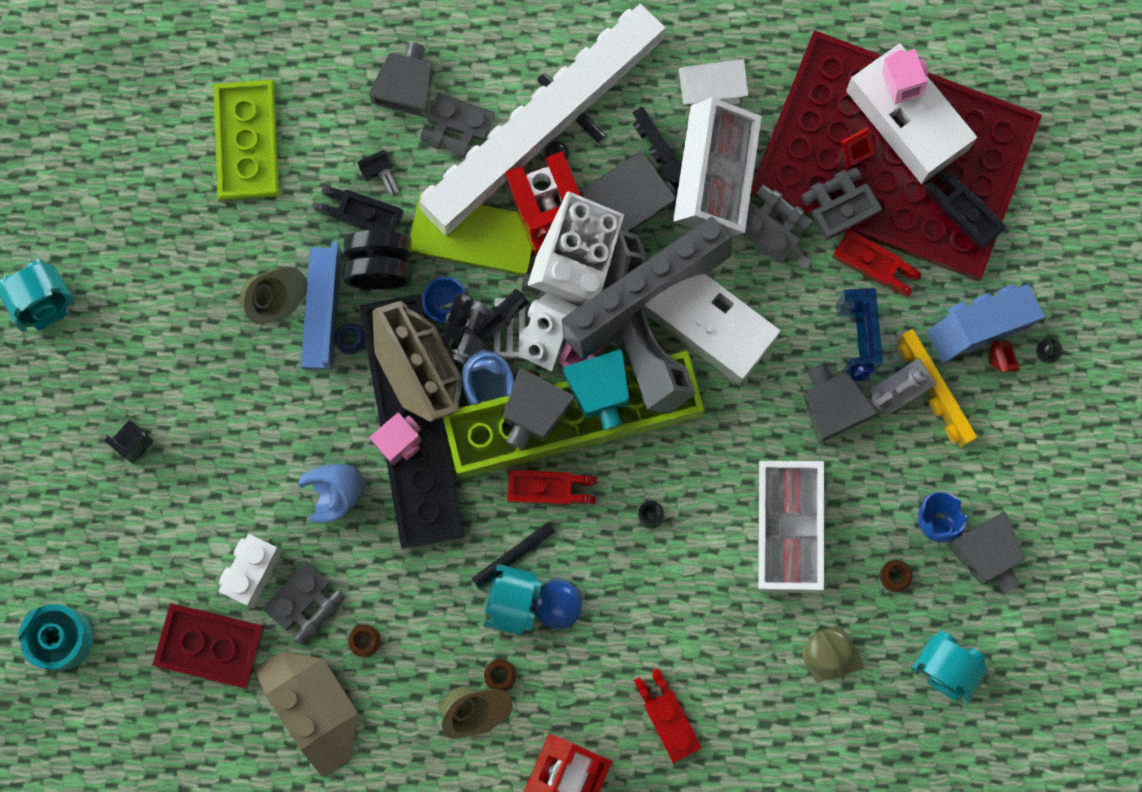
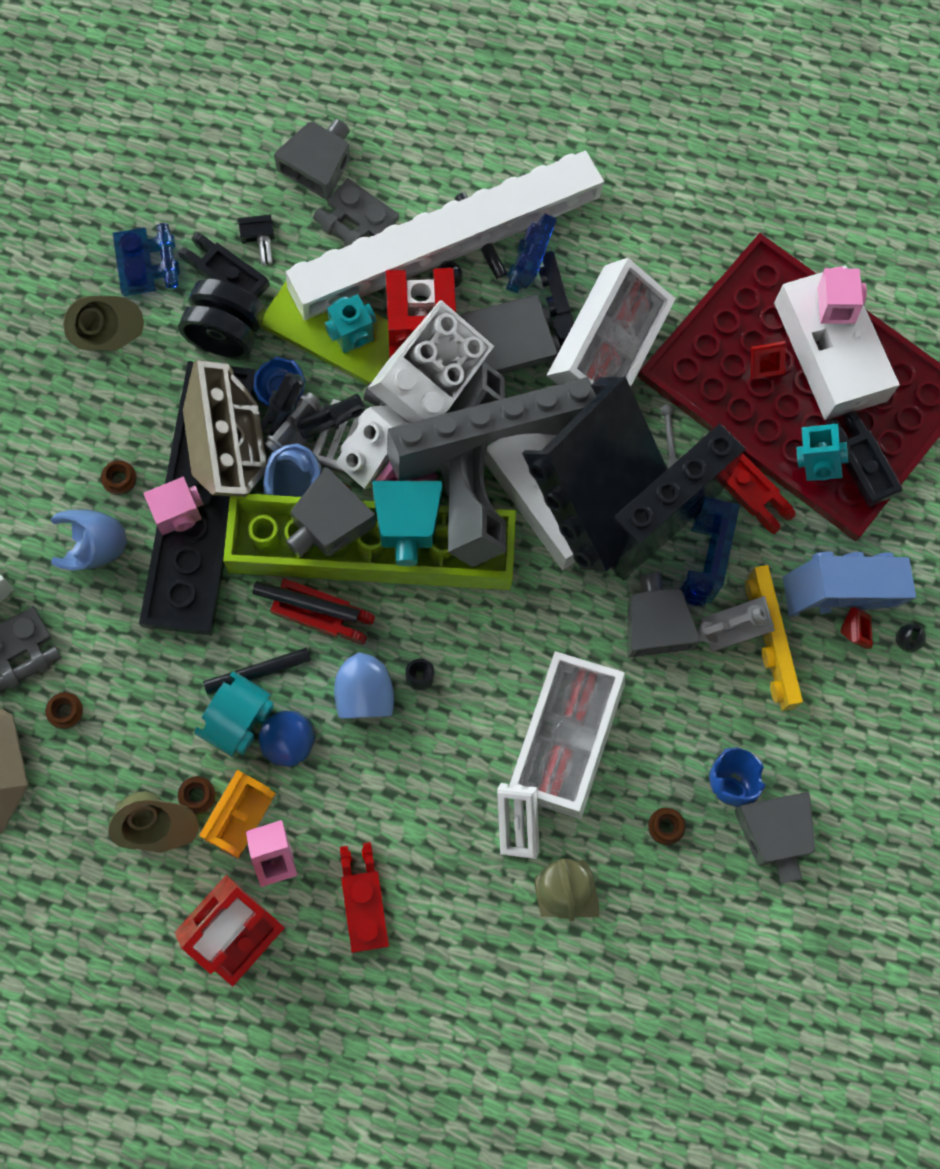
camera: 10 degrees right, 5 degrees down
(246, 140) = (134, 166): lime tile -> none
(278, 228) = (135, 263): none -> clear blue plate
(321, 307) = (148, 354): medium blue panel -> none
(332, 417) = (114, 468): none -> reddish brown plate
(345, 330) = (160, 386): dark blue plate -> none
(489, 237) = (350, 323): none -> teal brick
(538, 484) = (306, 602): none -> black bar
(541, 680) = (237, 812): none -> light orange hinge
(577, 699) = (271, 853): none -> bright pink brick
(610, 544) = (363, 688): none -> medium blue piece
(623, 114) = (531, 253): none -> clear blue plate
(716, 80) = (645, 247): white brick -> none
(755, 300) = (596, 471): none -> black panel
(769, 592) = (518, 794): none -> white tile
(770, 233) = (661, 425): dark grey plate -> none
(817, 303) = (675, 497): none -> black panel
(846, 211) = (742, 419): dark grey plate -> none
(929, 217) = (822, 452): none -> teal brick
(951, 667) = (695, 945): teal brick -> none

